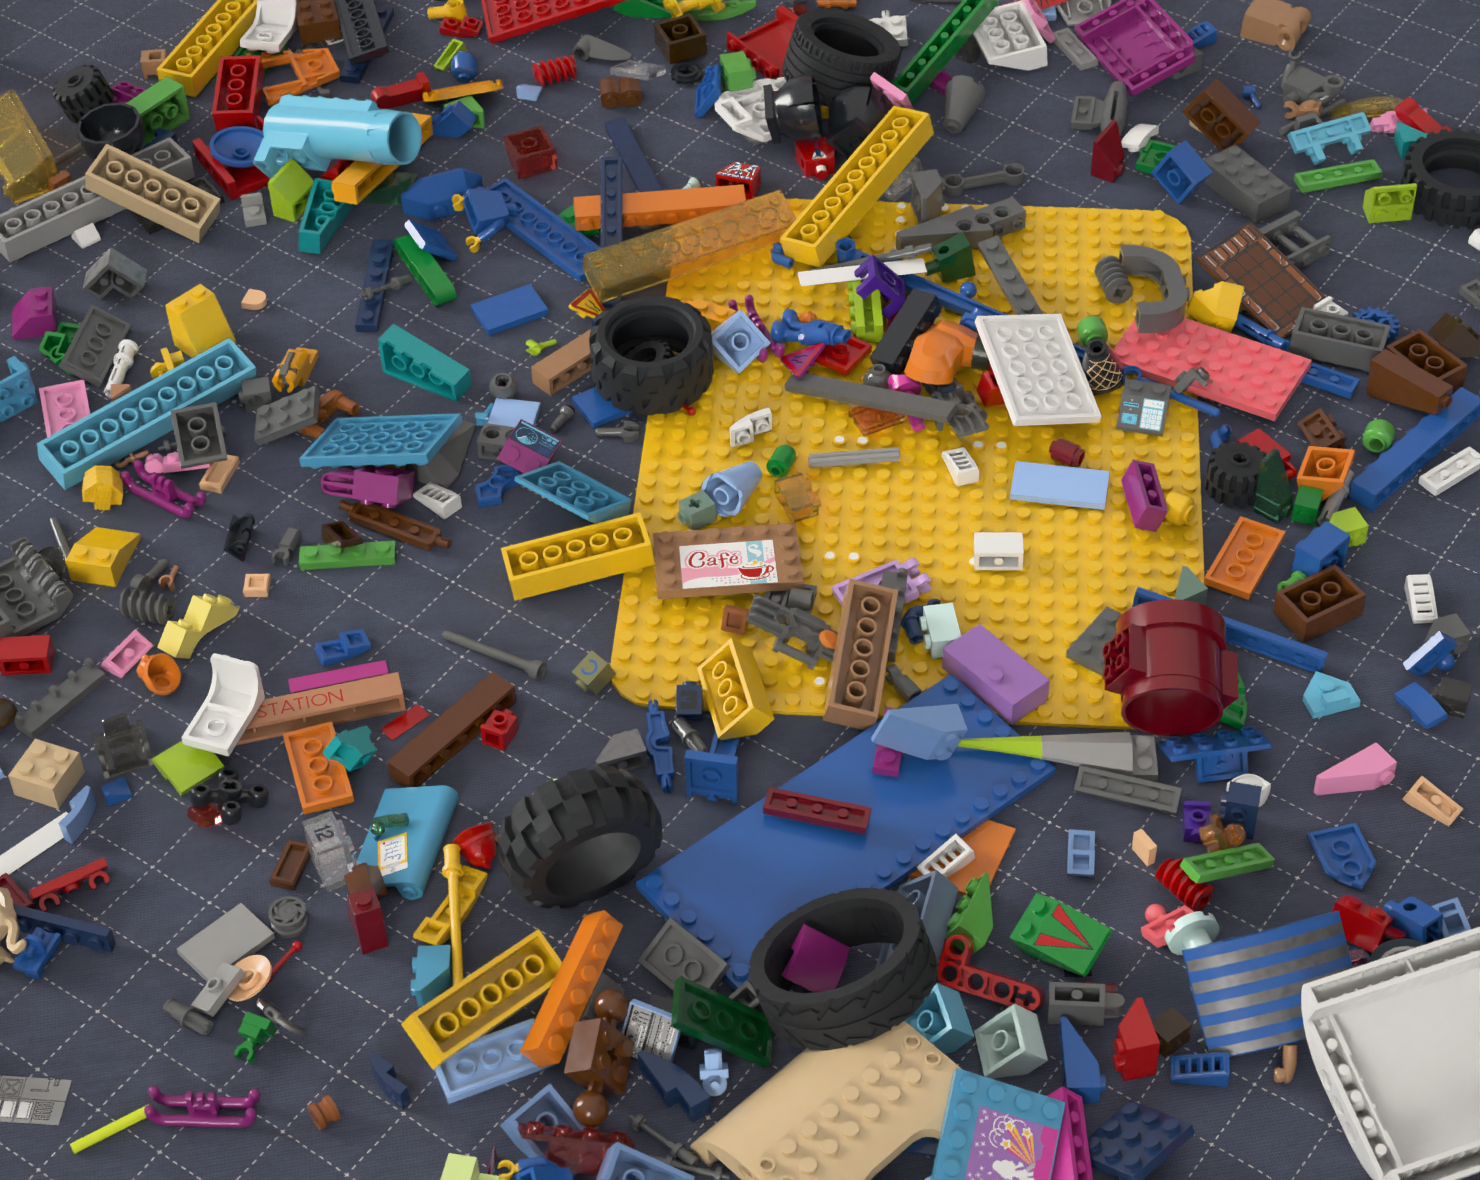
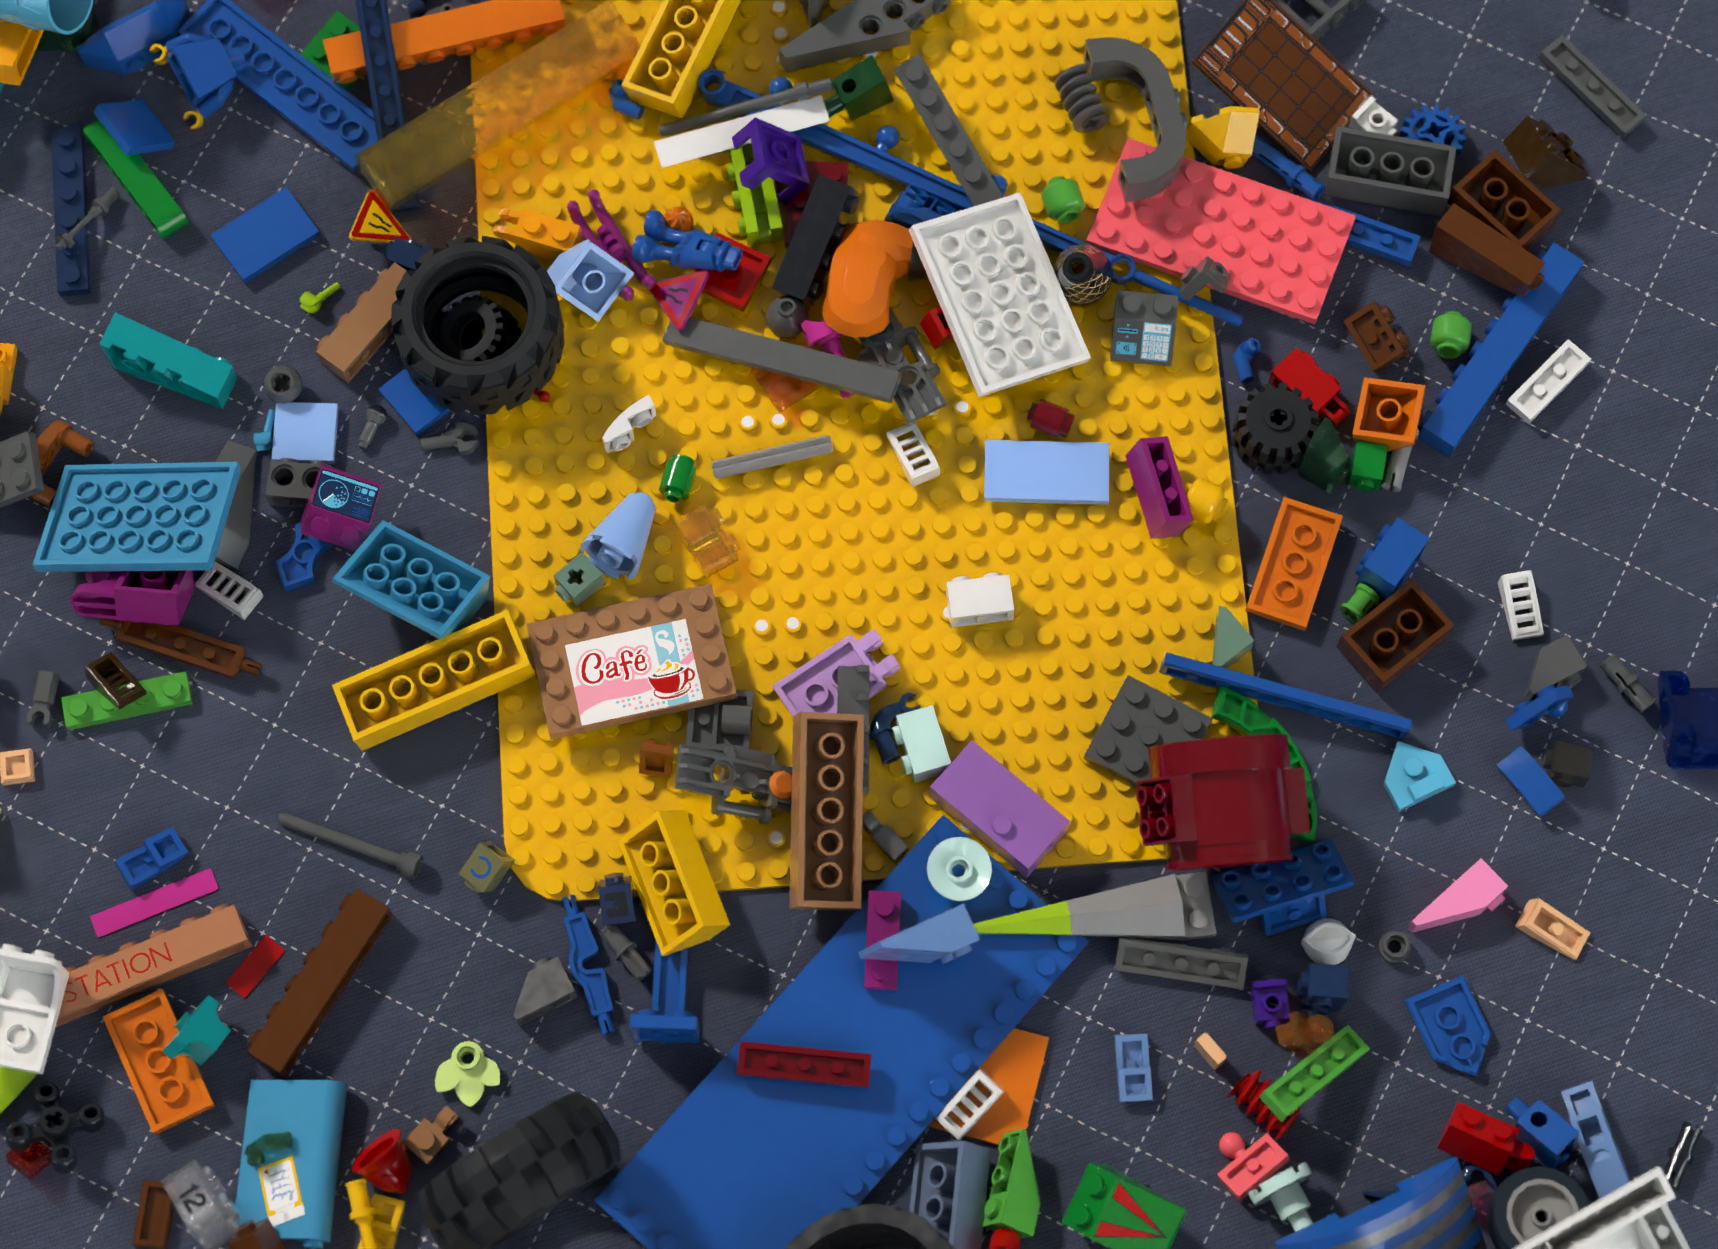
camera: 10 degrees left, 25 degrees up
(500, 724) = (381, 980): red brick -> none
(962, 693) = (962, 853): none -> light aqua dish
(1302, 798) = (1398, 938): none -> dark grey plate
(1351, 523) = (1420, 501): lime slope -> none

